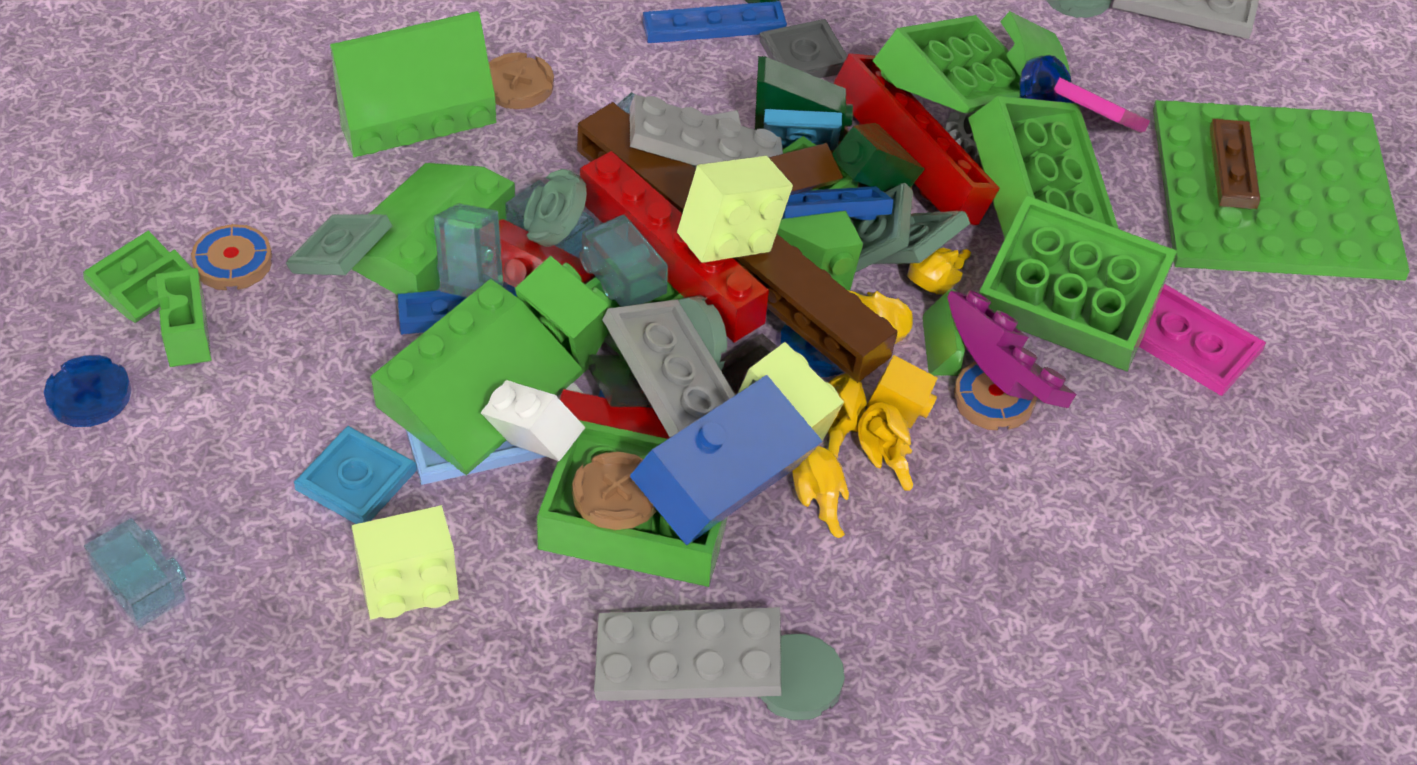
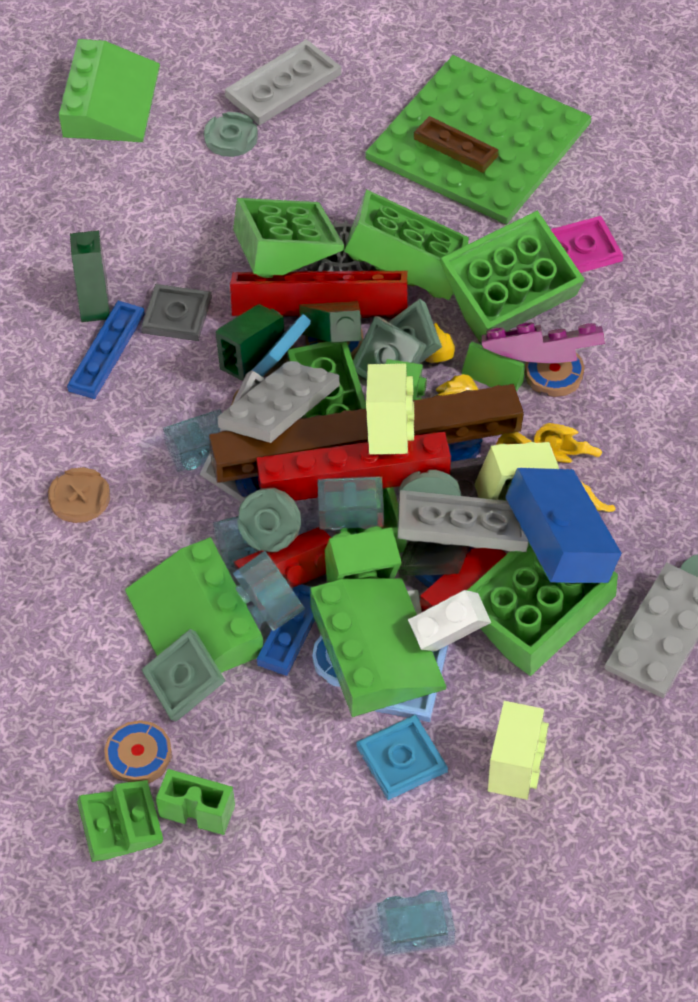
camera: 55 degrees left, 5 degrees up
(87, 391) = (212, 898): clear blue tile -> none
(413, 84) = (71, 557): bright green slope -> none
(607, 493) = (538, 602): medium nougat tile -> none
(808, 168) = (342, 370): reddish brown tile -> none
(858, 202) = (372, 350): blue plate -> none
(906, 389) = (537, 411): yellow brick -> none
(1030, 41) = (296, 188): bright green slope -> none
(1040, 78) = (328, 201): clear blue tile -> none
(1101, 105) = (367, 179): dark pink tile -> none

